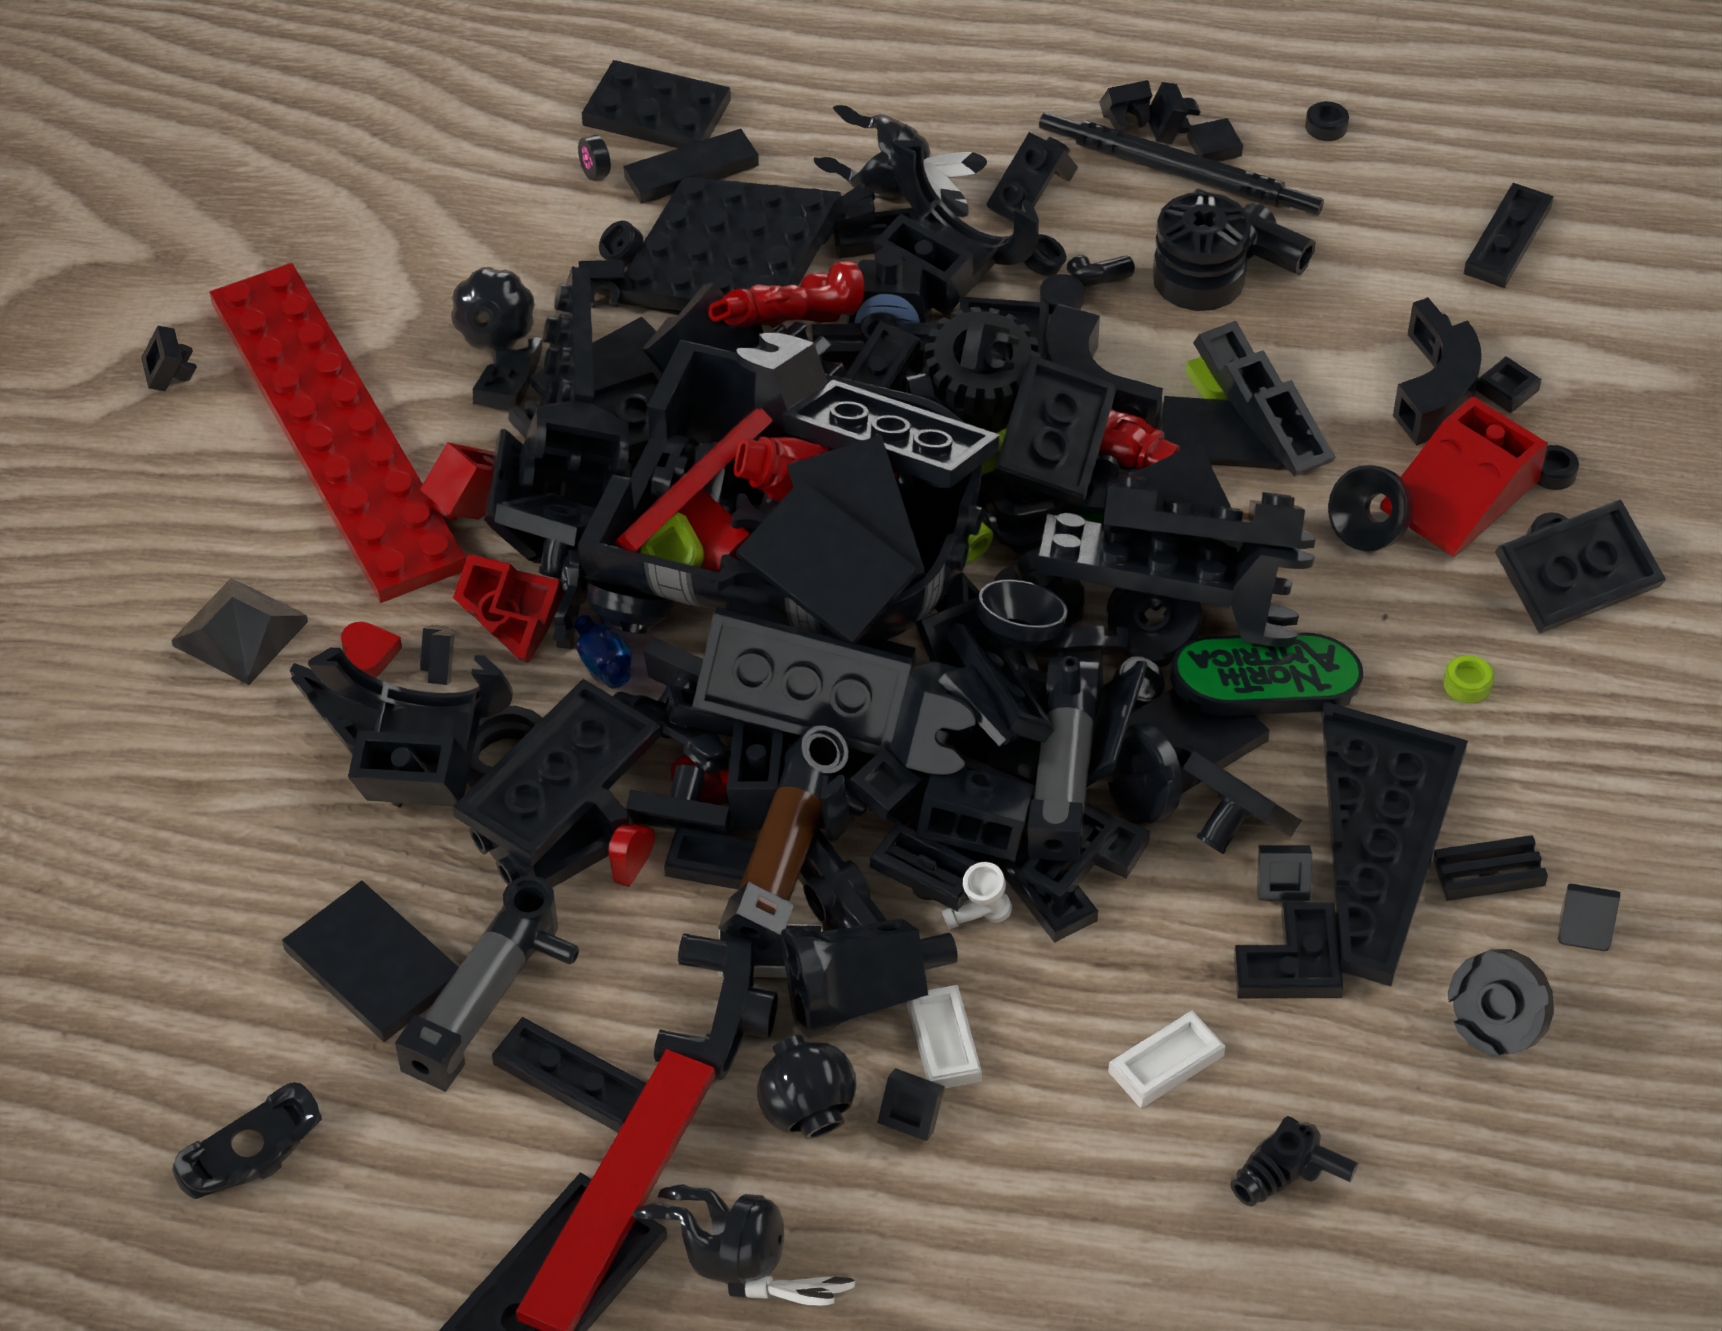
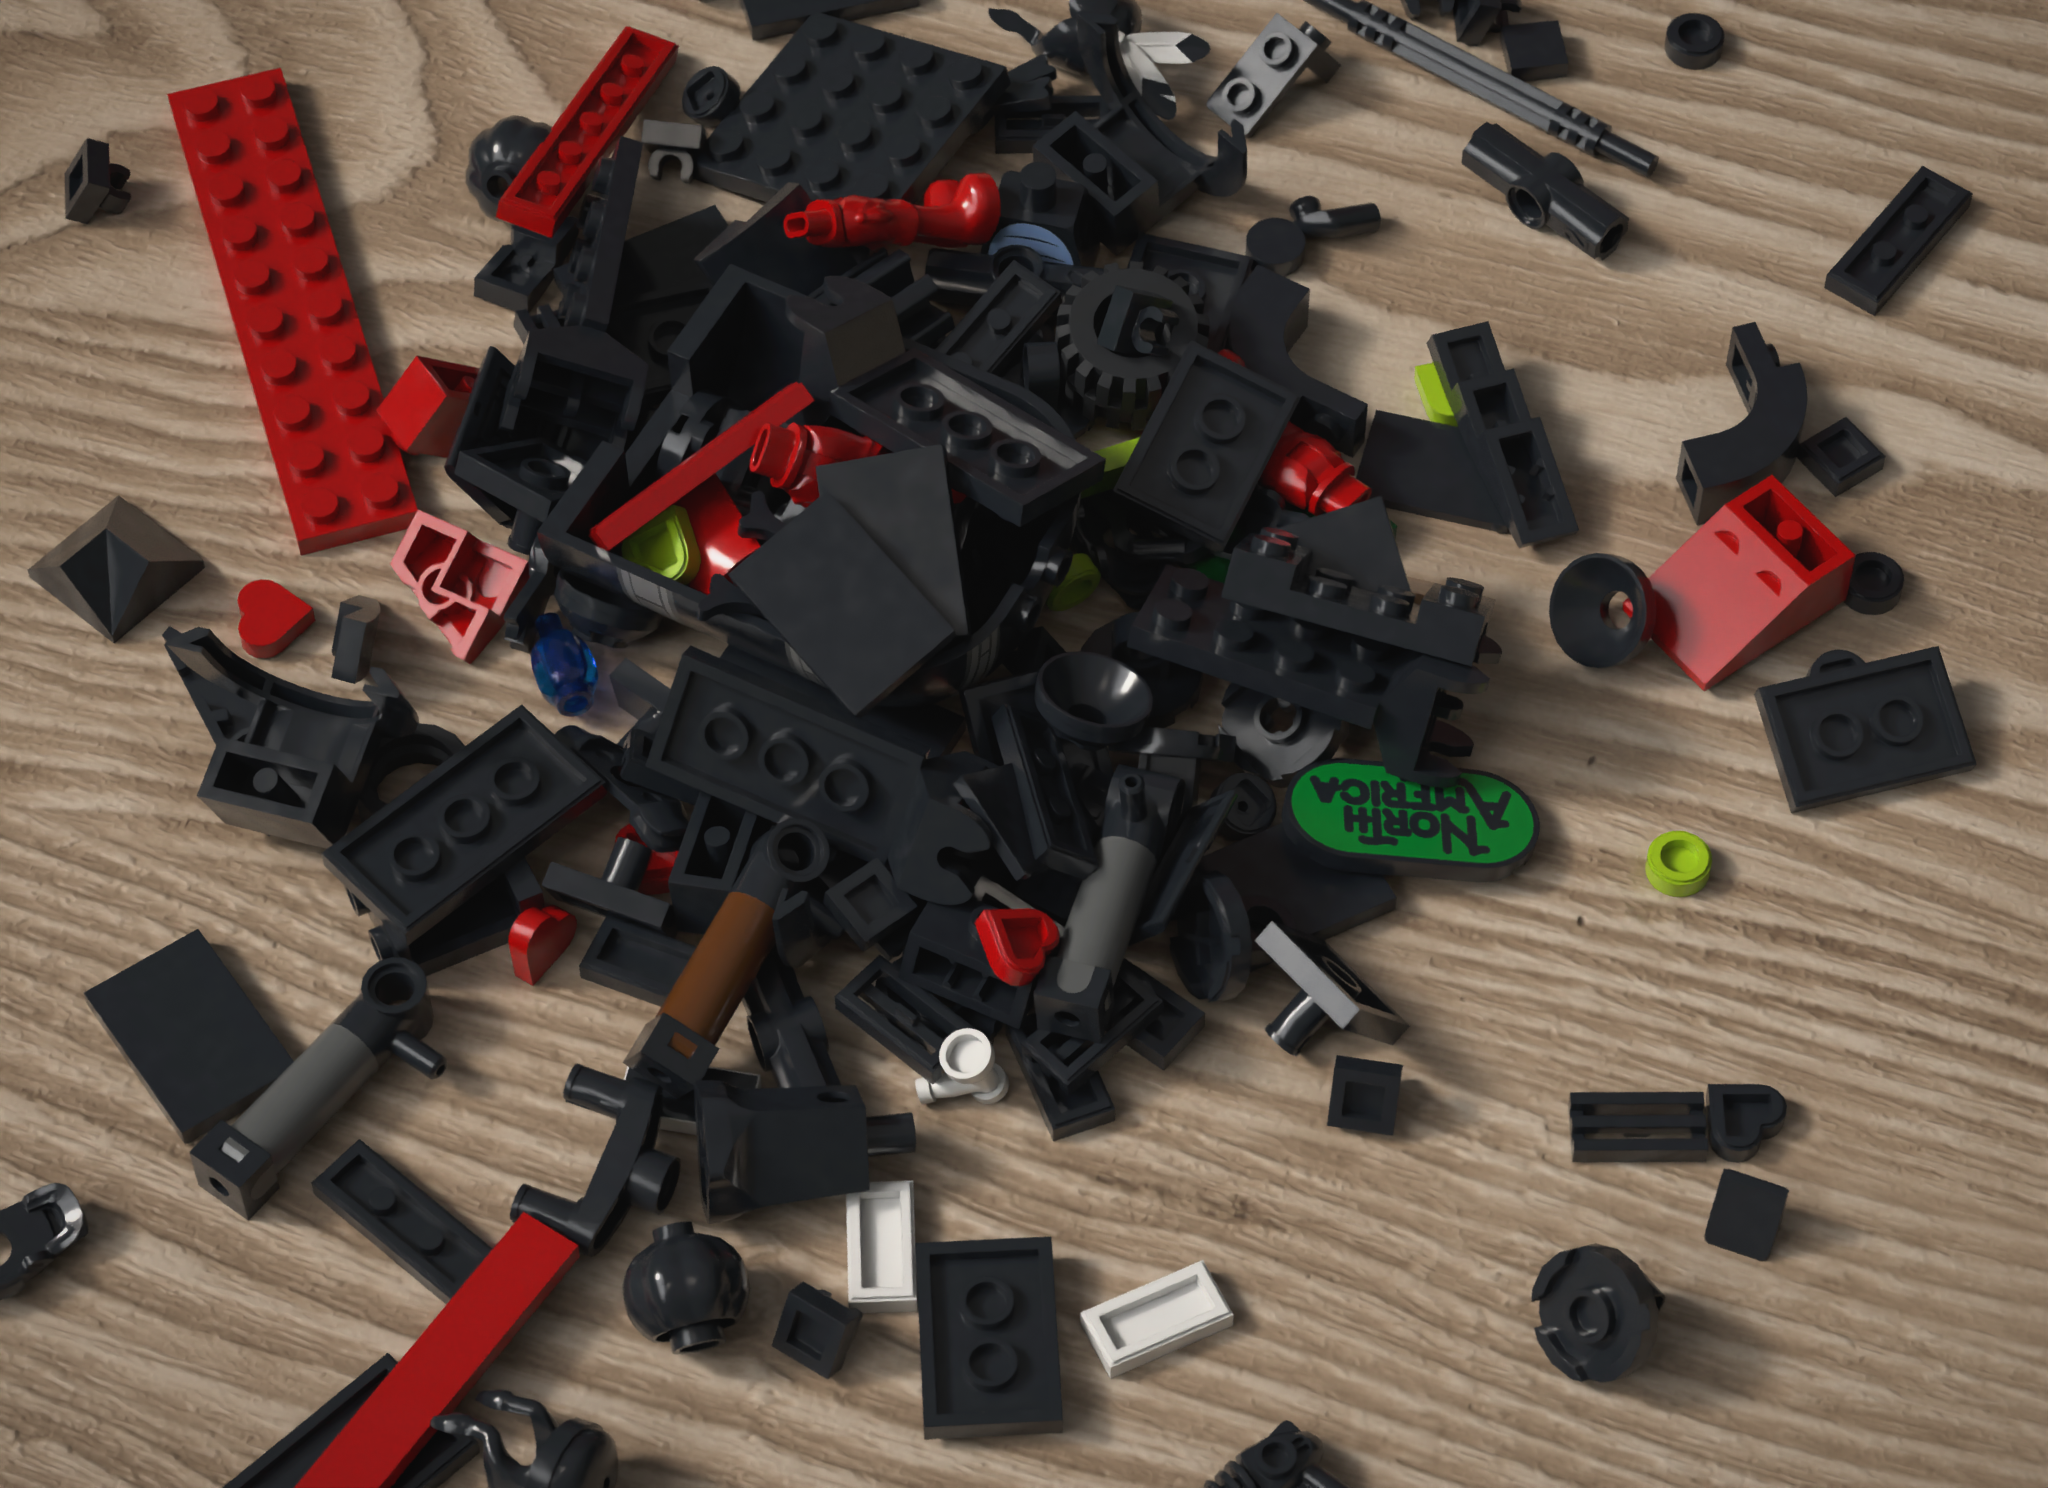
camera: 10 degrees right, 5 degrees up
(540, 272) = (586, 131): none -> red tile
(1007, 792) = (1017, 942): none -> red tile
(1044, 1091) = (988, 1338): none -> black plate
(1047, 257) = (1265, 189): black tile -> none
(1201, 251) = (1469, 213): black wheel -> none
(1300, 968) = (1356, 1225): black tile -> none
(1385, 817) = (1518, 1034): black wing -> none
(1565, 850) = (1742, 1117): none -> black tile

